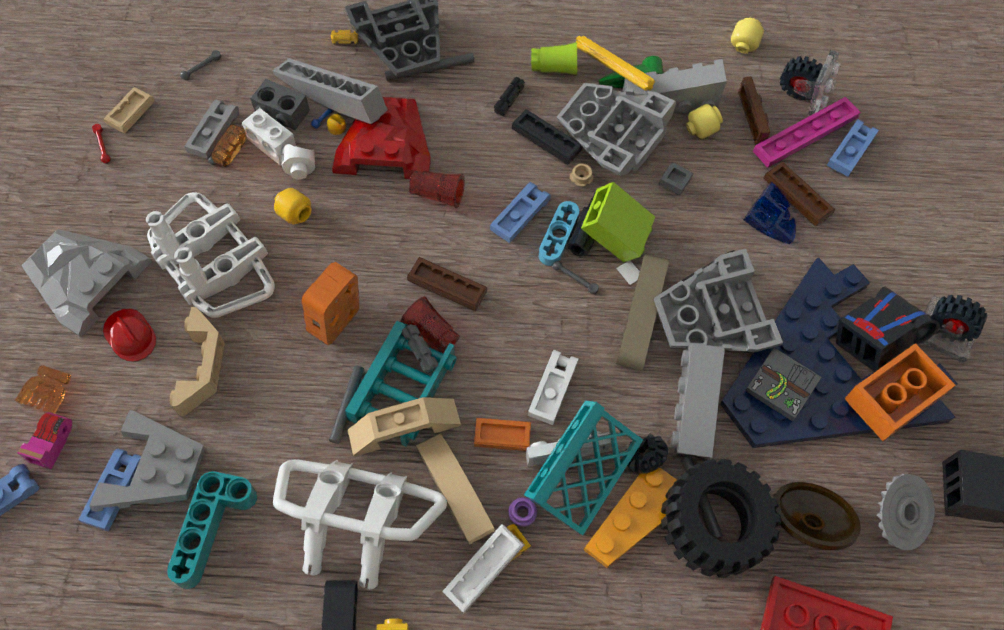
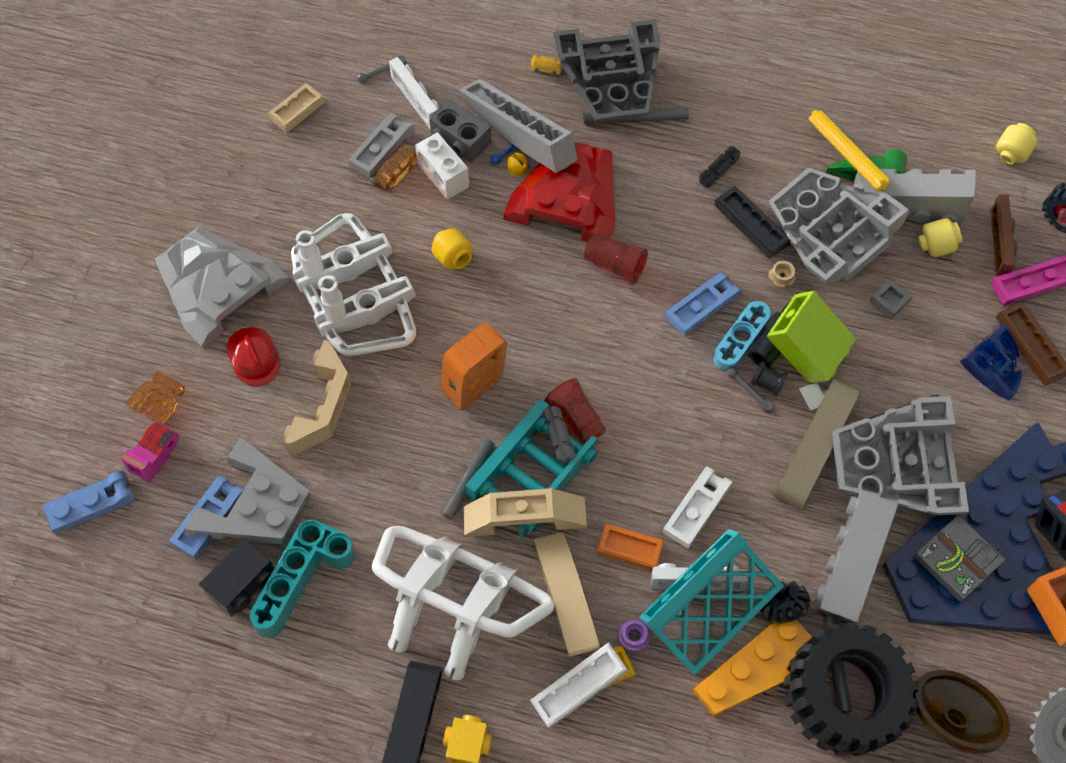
camera: 15 degrees right, 0 degrees up
(97, 129) = (258, 124): red hinge -> none
(149, 540) = (237, 578): none -> black brick
(232, 78) = (413, 91): none -> white plate
(297, 161) = (467, 200): white piece -> none
(447, 284) = (604, 368): reddish brown plate -> none
(555, 59) = (782, 133): lime plant -> none
(590, 264) = (769, 378): none -> black bush

